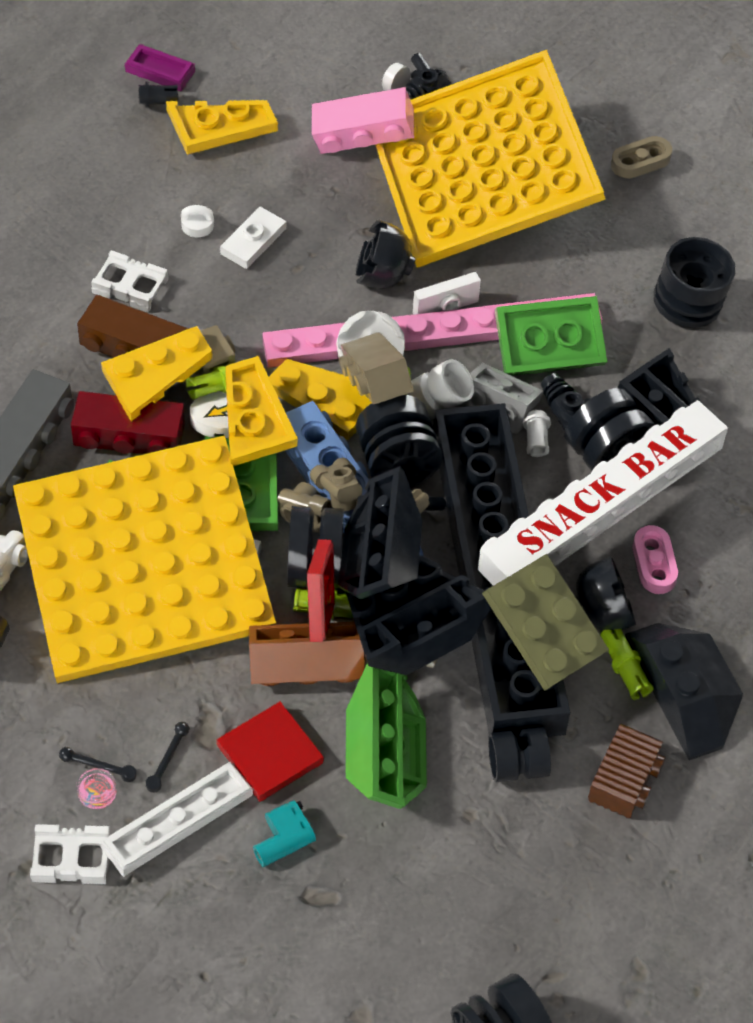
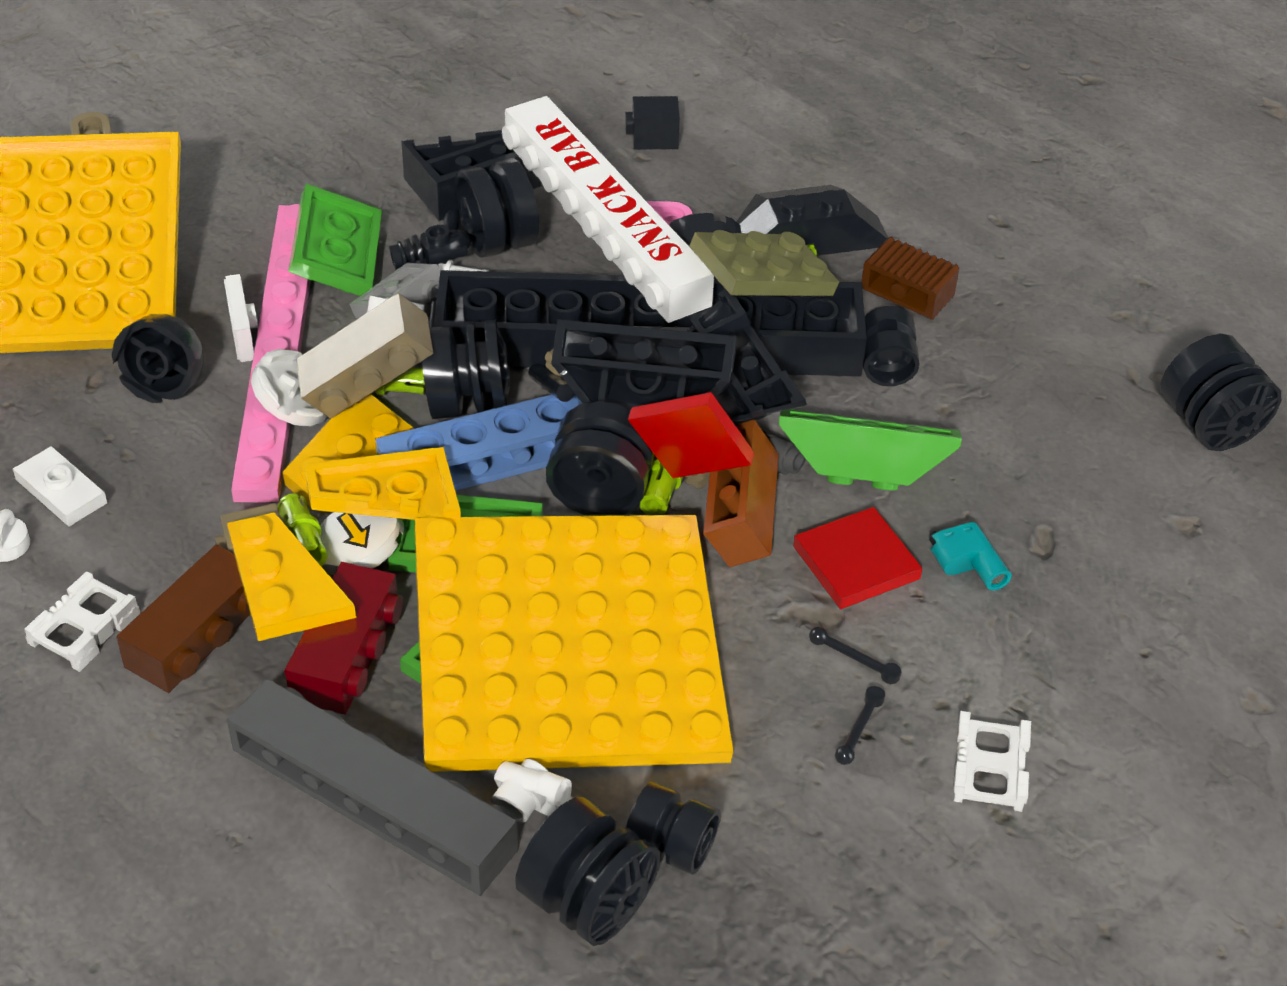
camera: 80 degrees left, 10 degrees down
(96, 788) = (896, 728): clear tile -> none
(176, 818) = (948, 651): white tile -> none
(306, 496) = (525, 477): dark tan plate -> none
(340, 482) = (528, 411): dark tan plate -> none
(694, 282) = (306, 120): black wheel -> none

